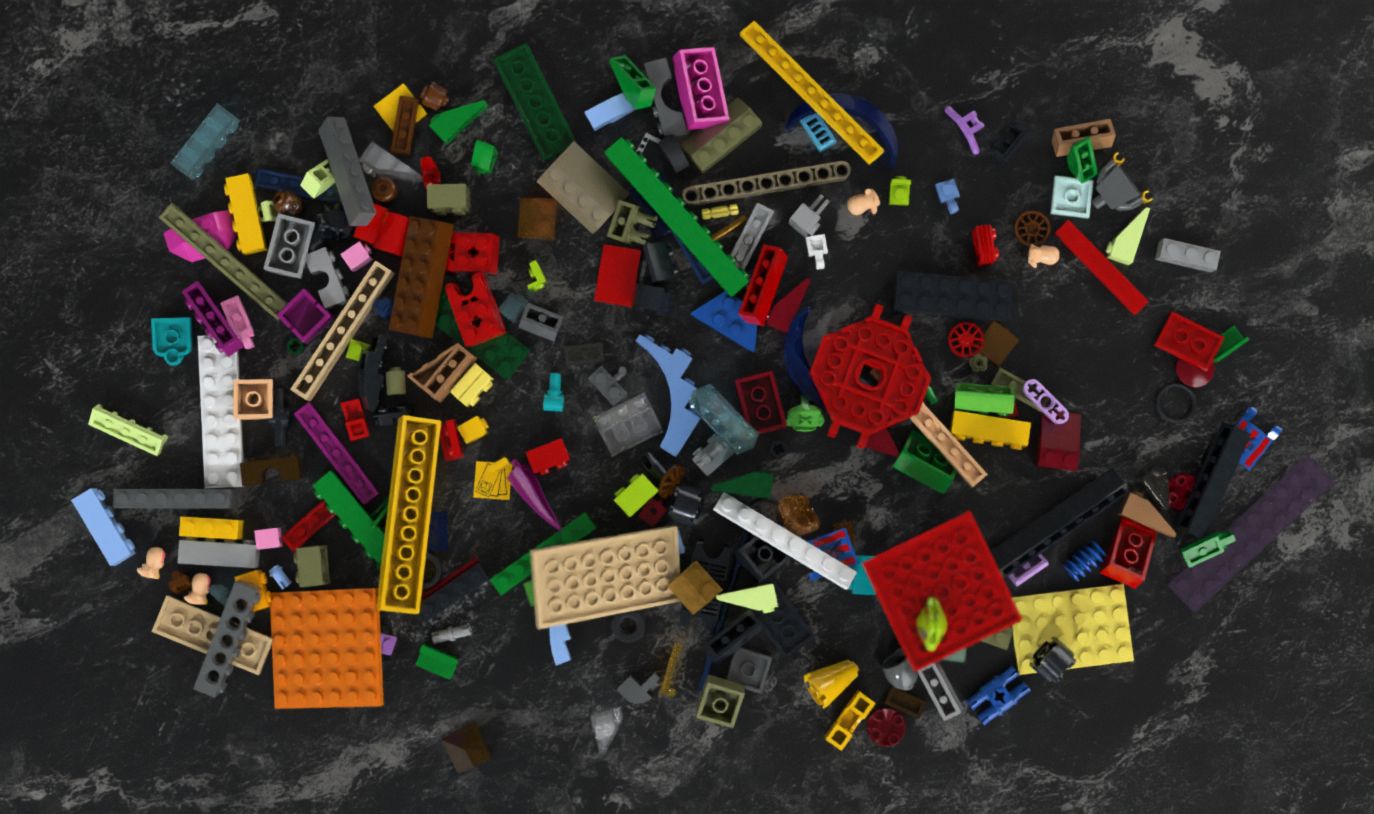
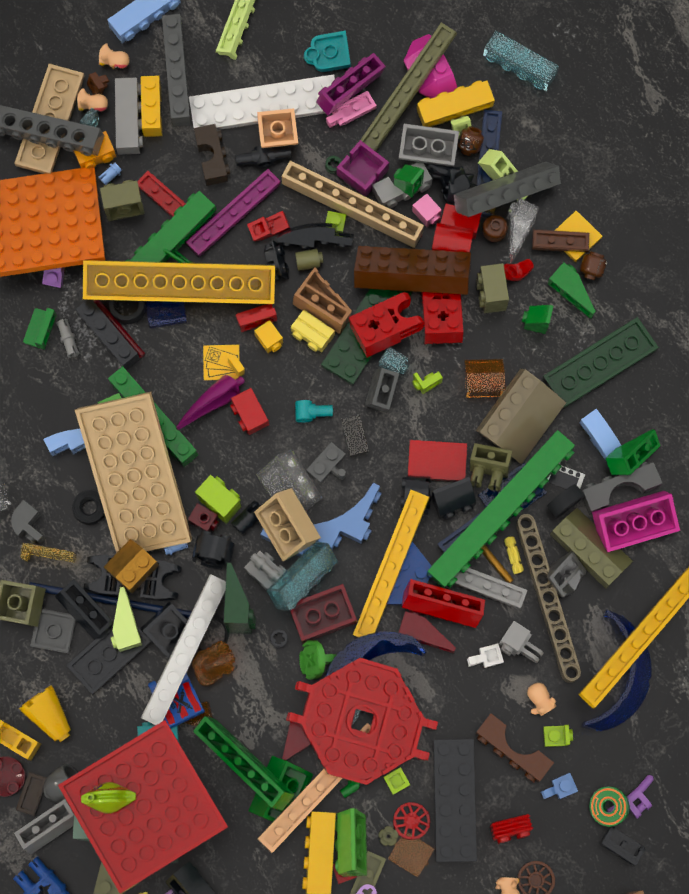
camera: 80 degrees right, 10 degrees down
(268, 538) = (145, 159): bright pink panel -> none
(325, 270) = (409, 179): none -> green slope
(383, 307) = (380, 239): dark blue gear -> none
(670, 429) = (287, 524): none -> tan slope
(671, 481) = (230, 528): reddish brown wheel -> none
(720, 330) = (391, 564): none -> yellow plate
(745, 163) = (566, 574): none -> flat silver slope
(827, 133) = (594, 653): medium azure slope -> none
(900, 493) = (243, 763): none -> green brick
(924, 216) = (534, 764): none -> reddish brown arch
(928, 349) = (396, 781): none -> lime plate
(964, 142) = (620, 802): none -> green tile

